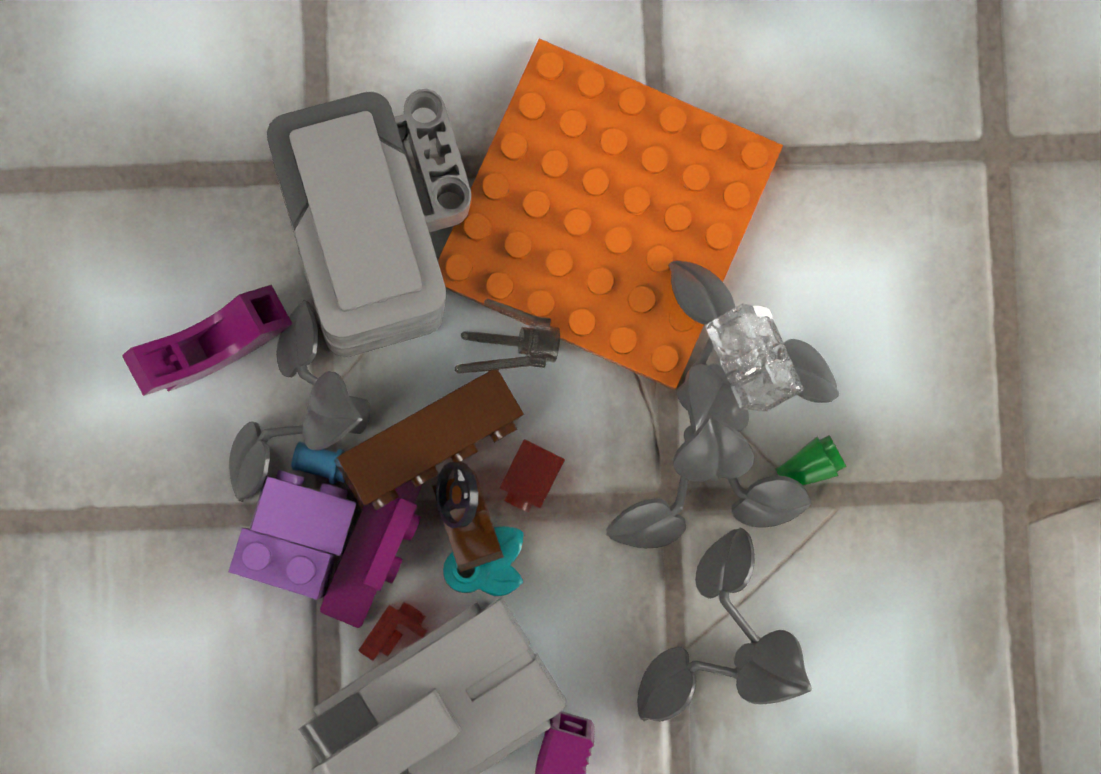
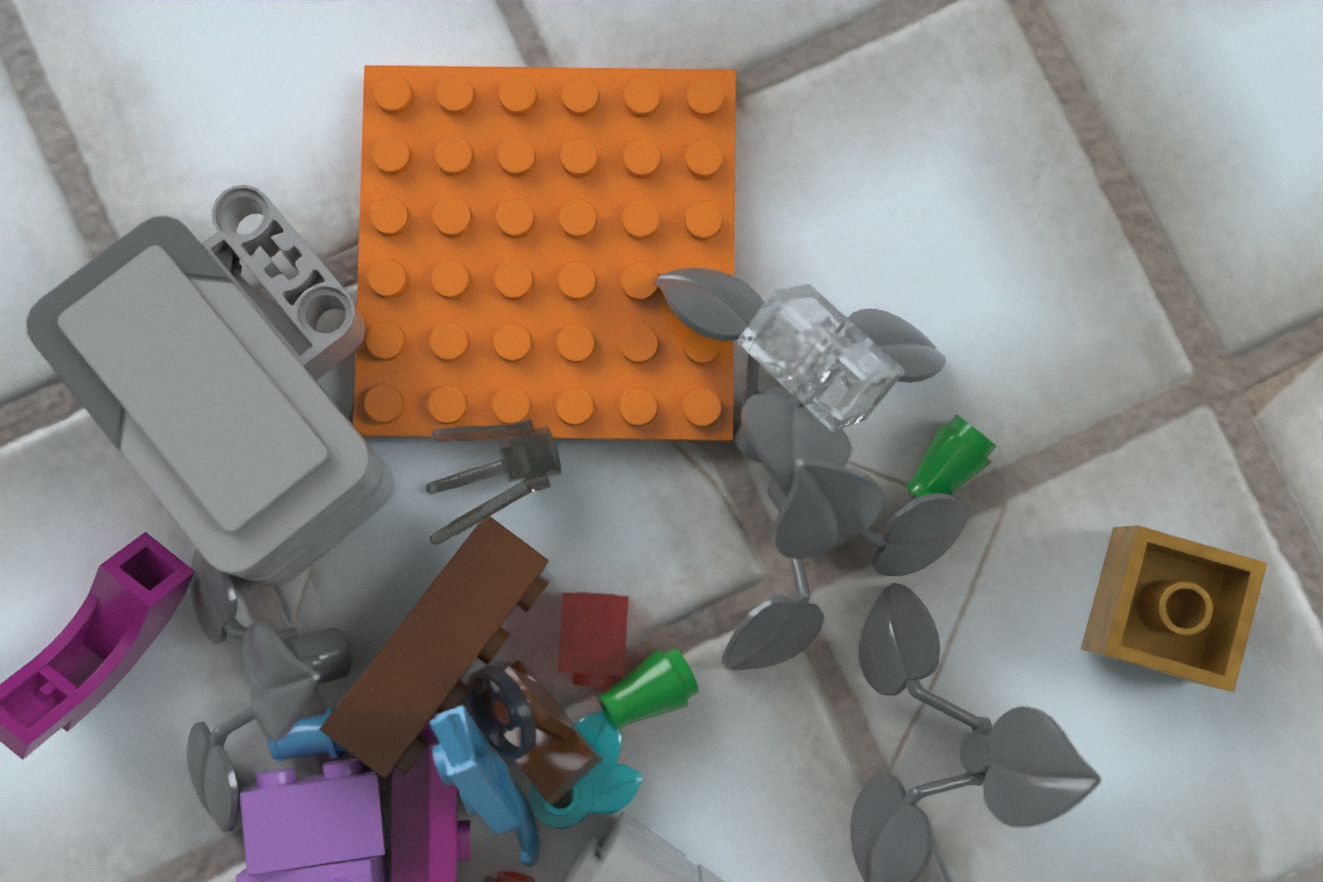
camera: 20 degrees left, 0 degrees up
(425, 534) = (483, 780): none -> dark azure plate
(553, 526) = (651, 689): none -> green cone
(915, 619) = (1174, 606): none -> pearl gold brick

